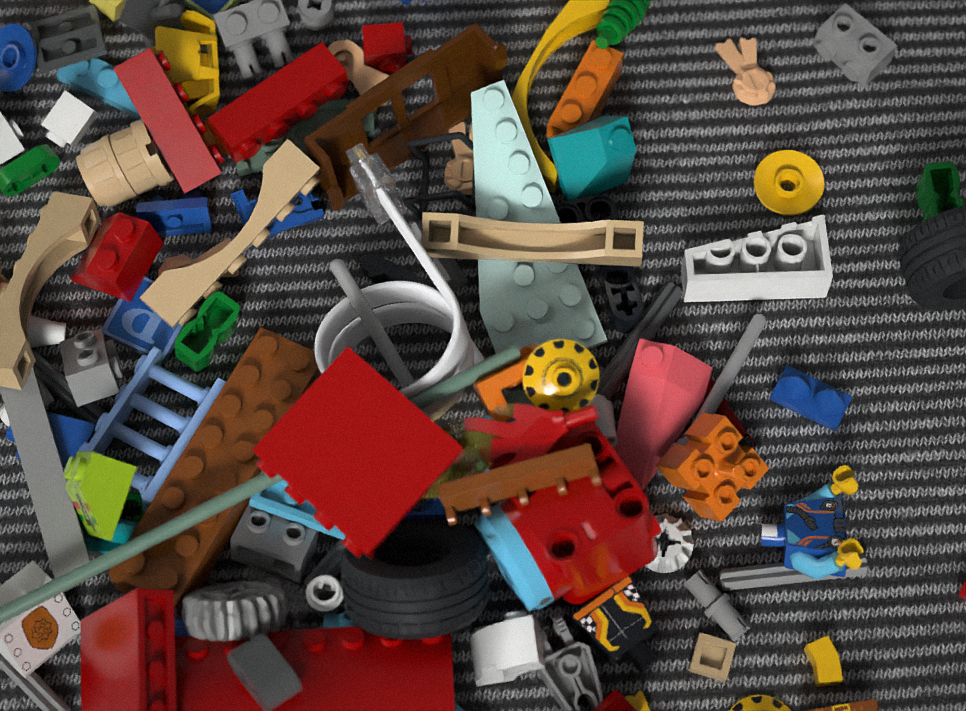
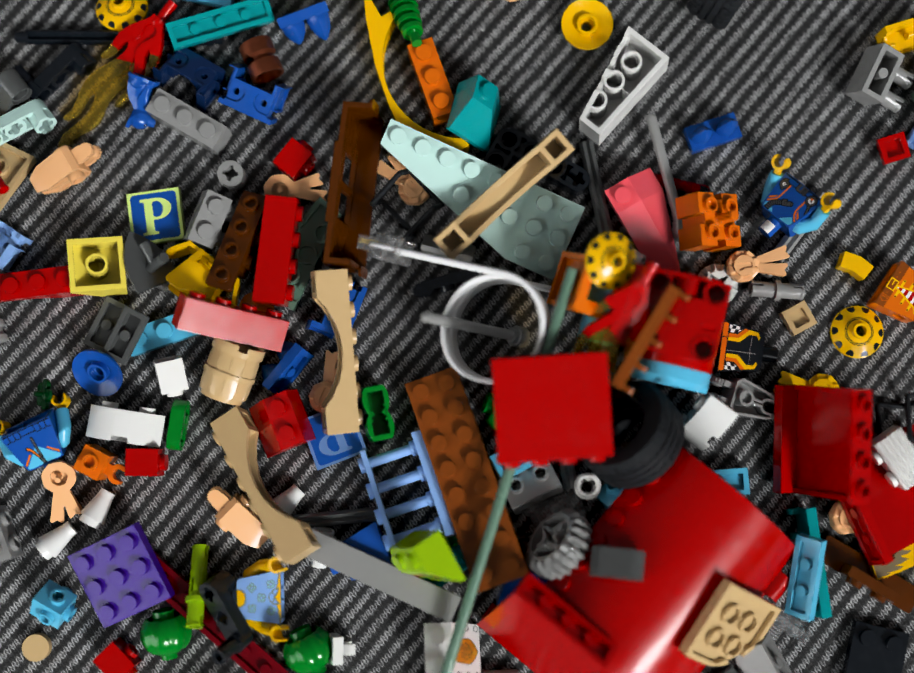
camera: 45 degrees left, 15 degrees up
(91, 366) = (338, 496): light grey brick -> none
(249, 64) = (239, 244): none -> reddish brown bracket
(708, 548) = (744, 265): none -> light nougat piece

